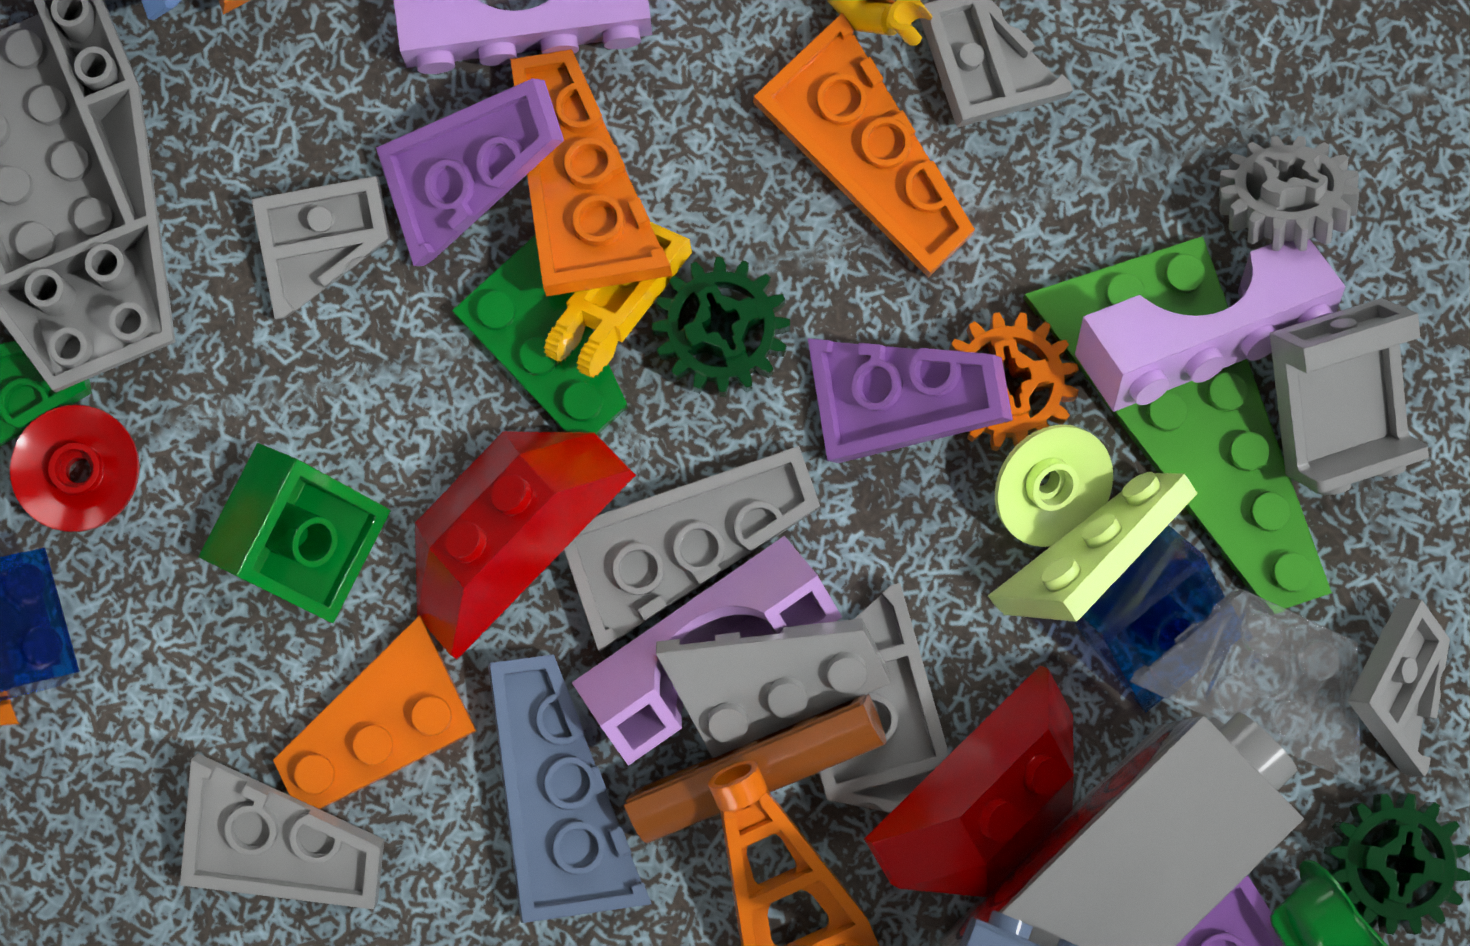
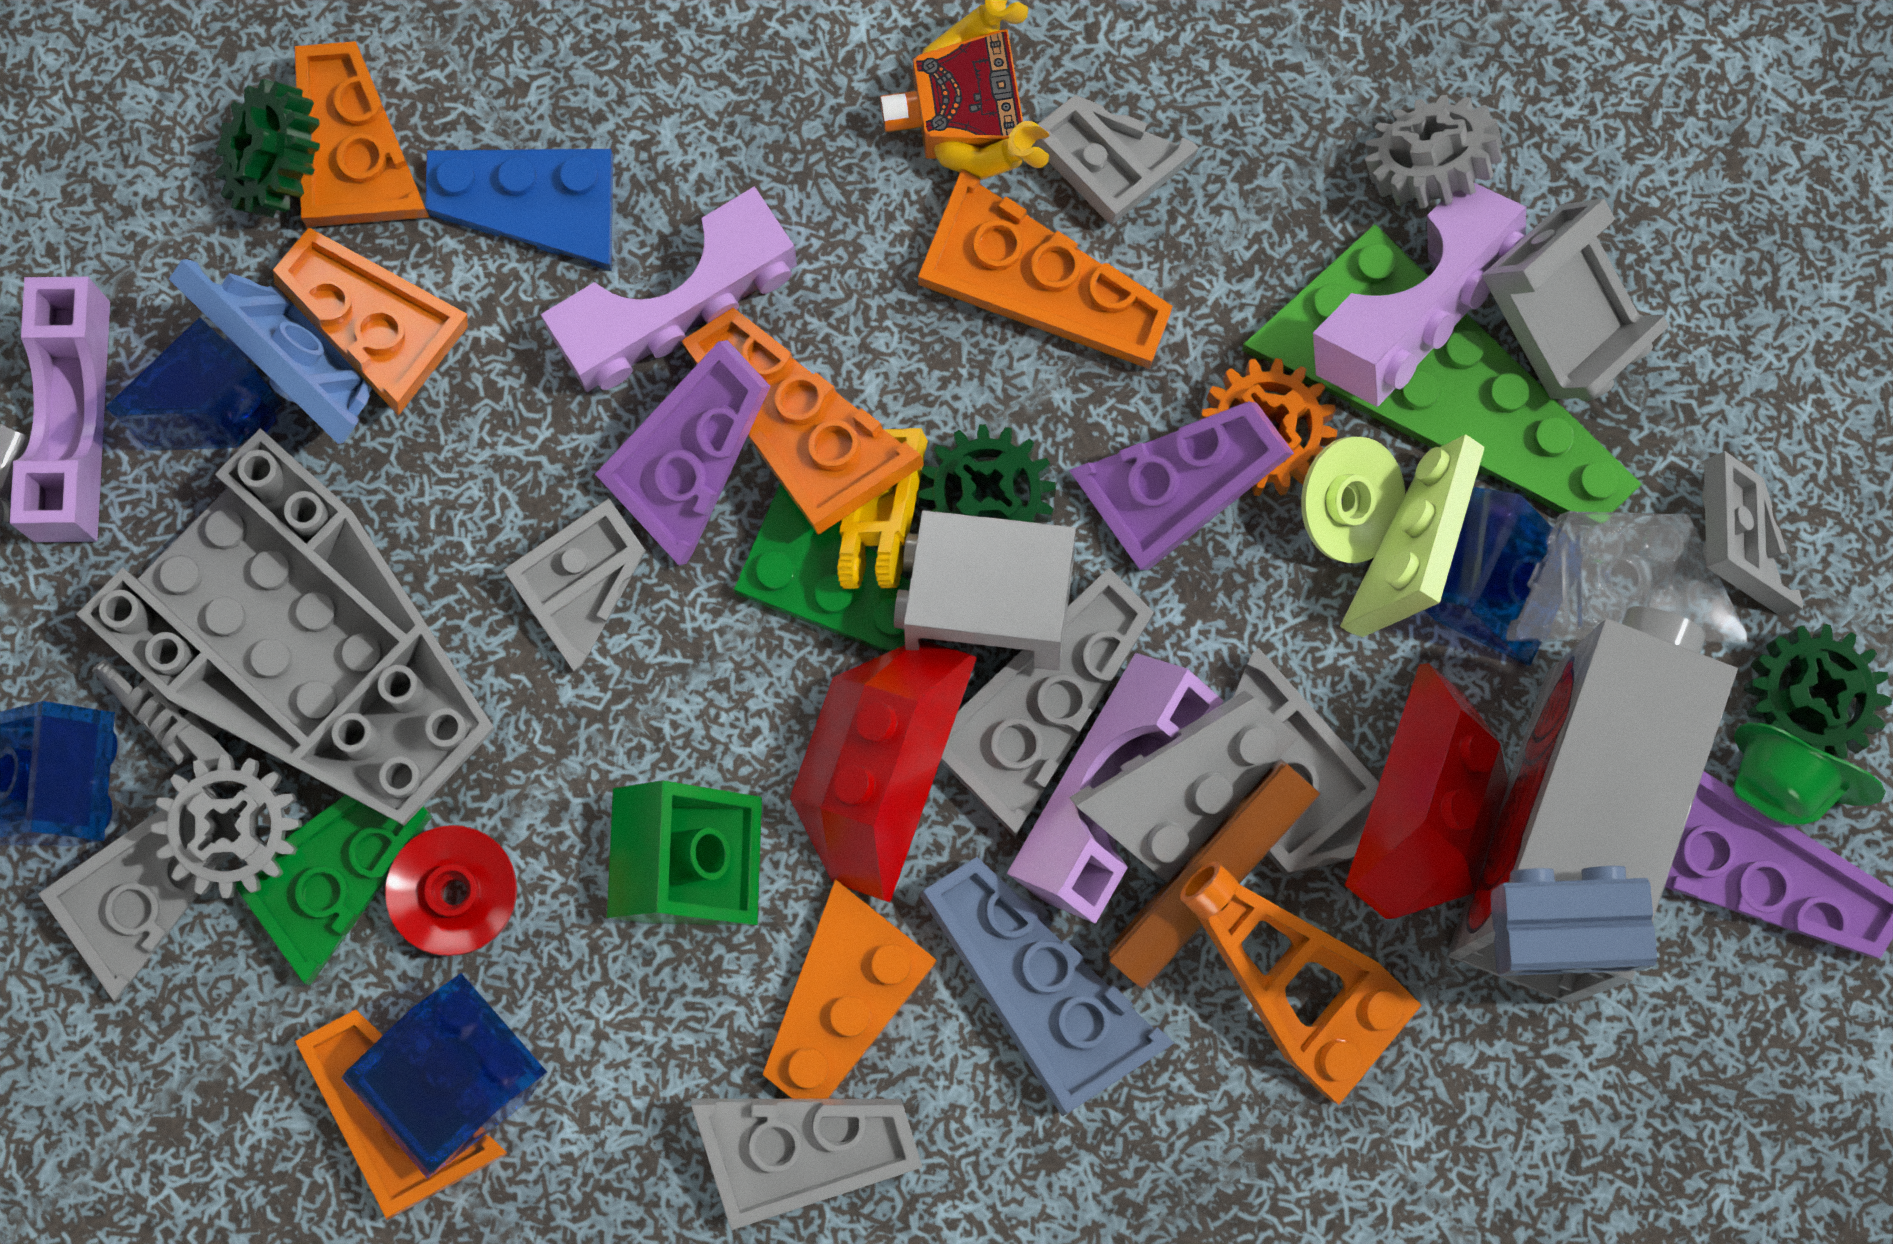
camera: 25 degrees left, 5 degrees down
(677, 413) = (988, 584): none -> light grey panel

